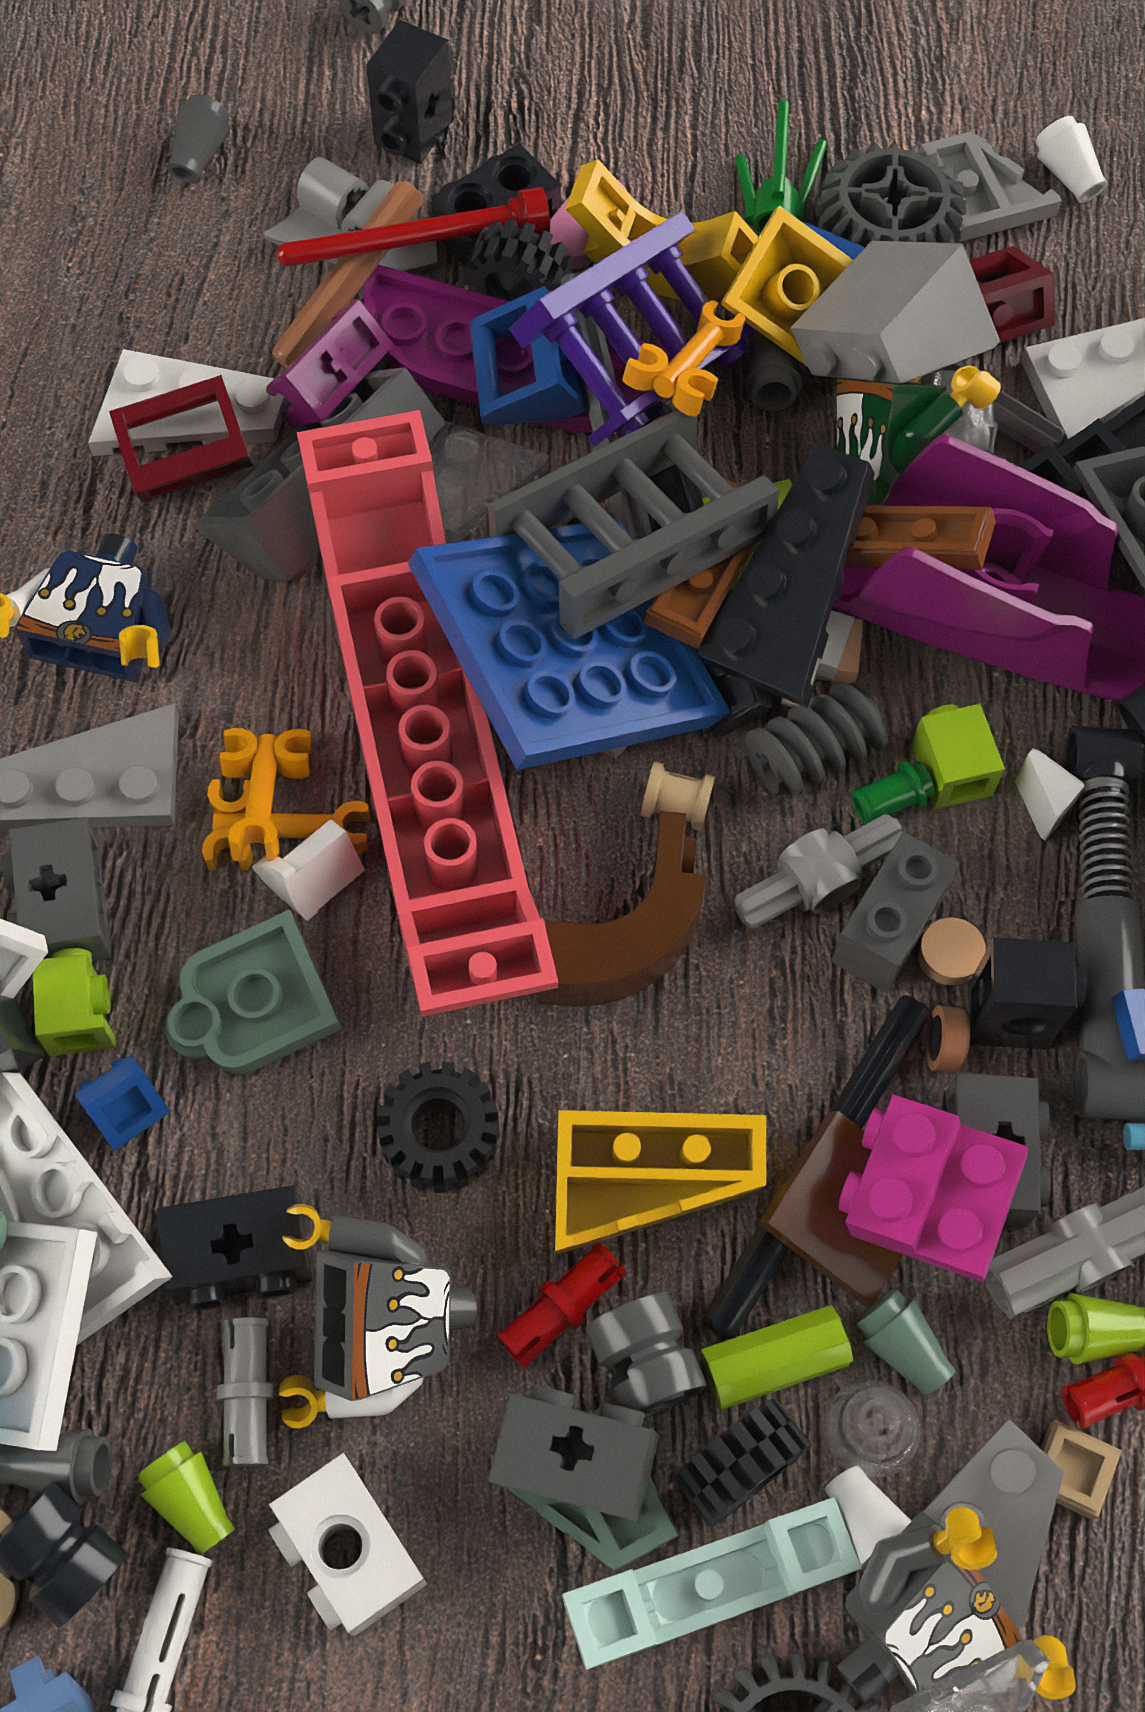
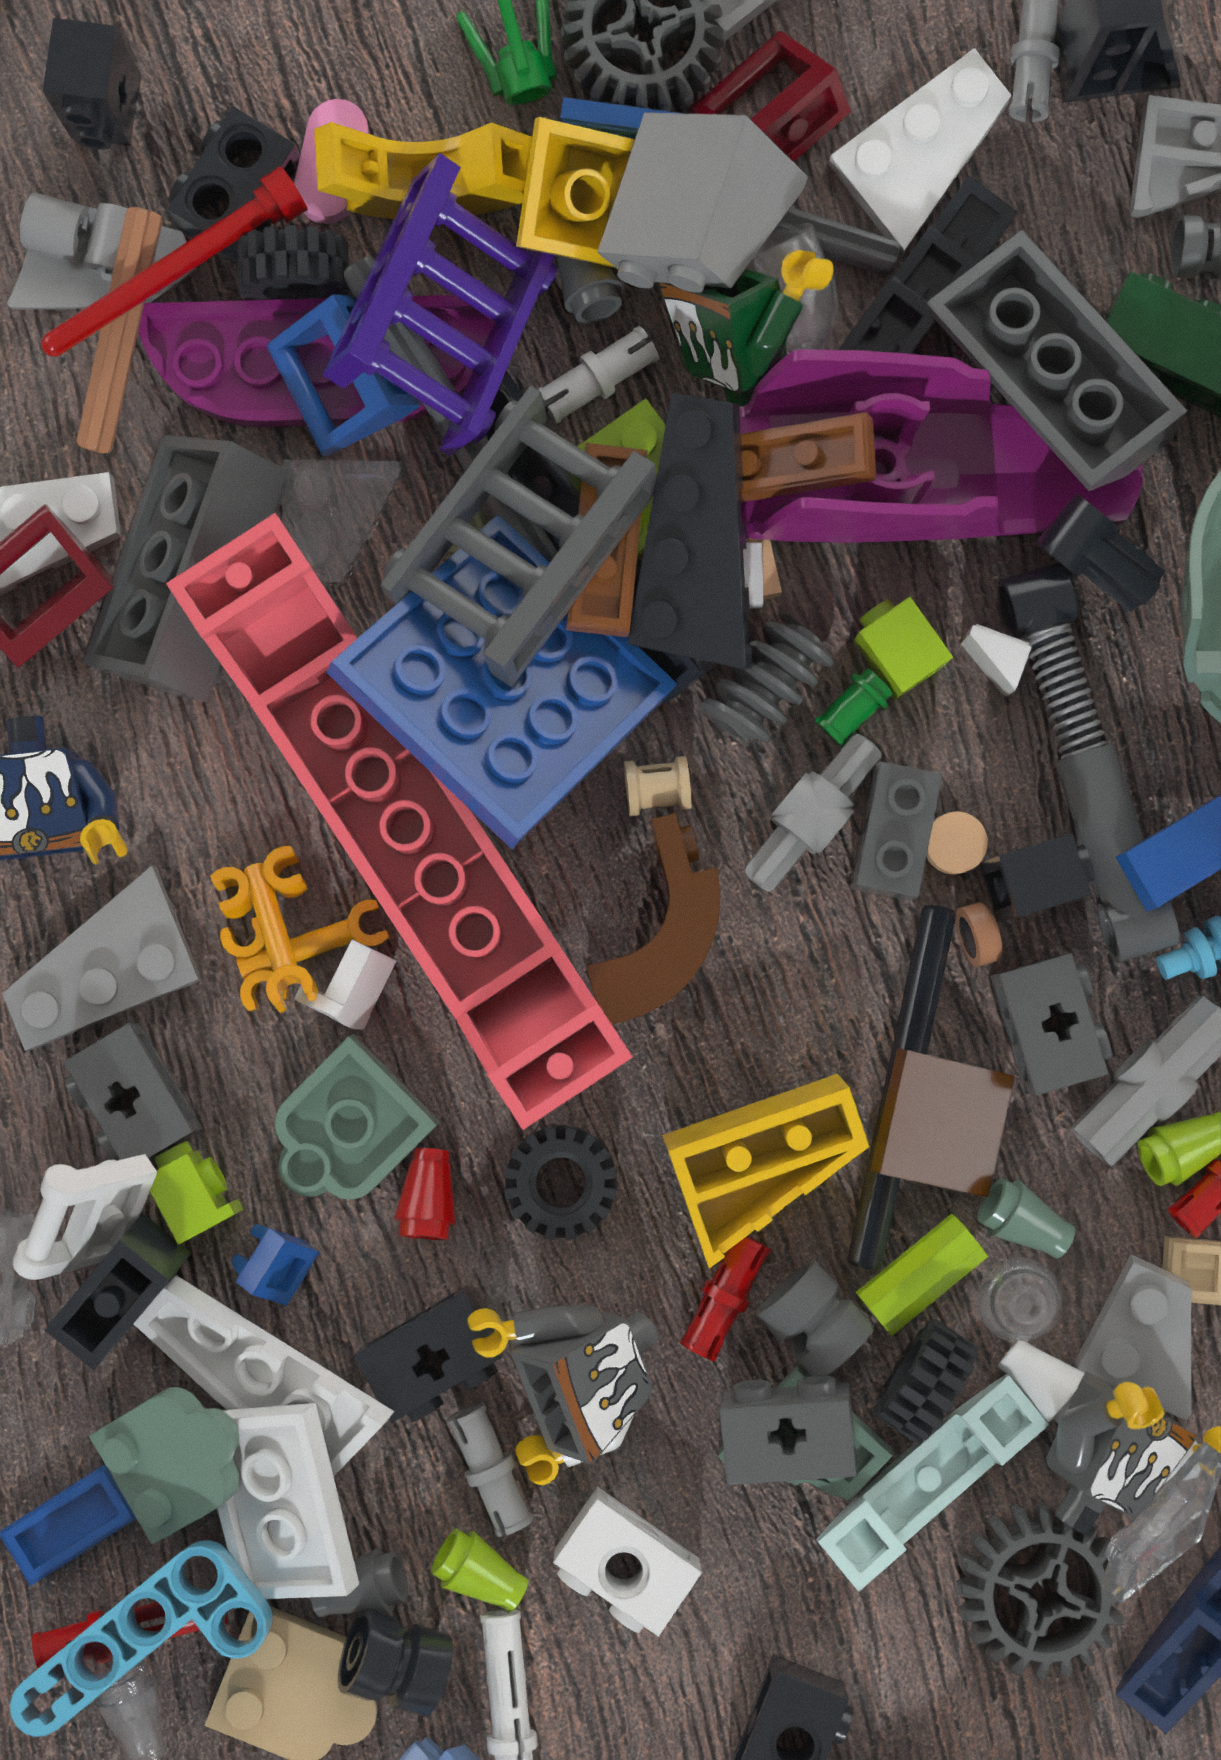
camera: 20 degrees left, 20 degrees up
(298, 1094) = (427, 1196): none -> red cone
(331, 365) = (151, 448): magenta hinge -> none
(681, 374) = (505, 366): light orange bar -> none
(757, 446) = (598, 374): none -> white pin
(932, 1187) = (1012, 1093): dark pink plate -> none

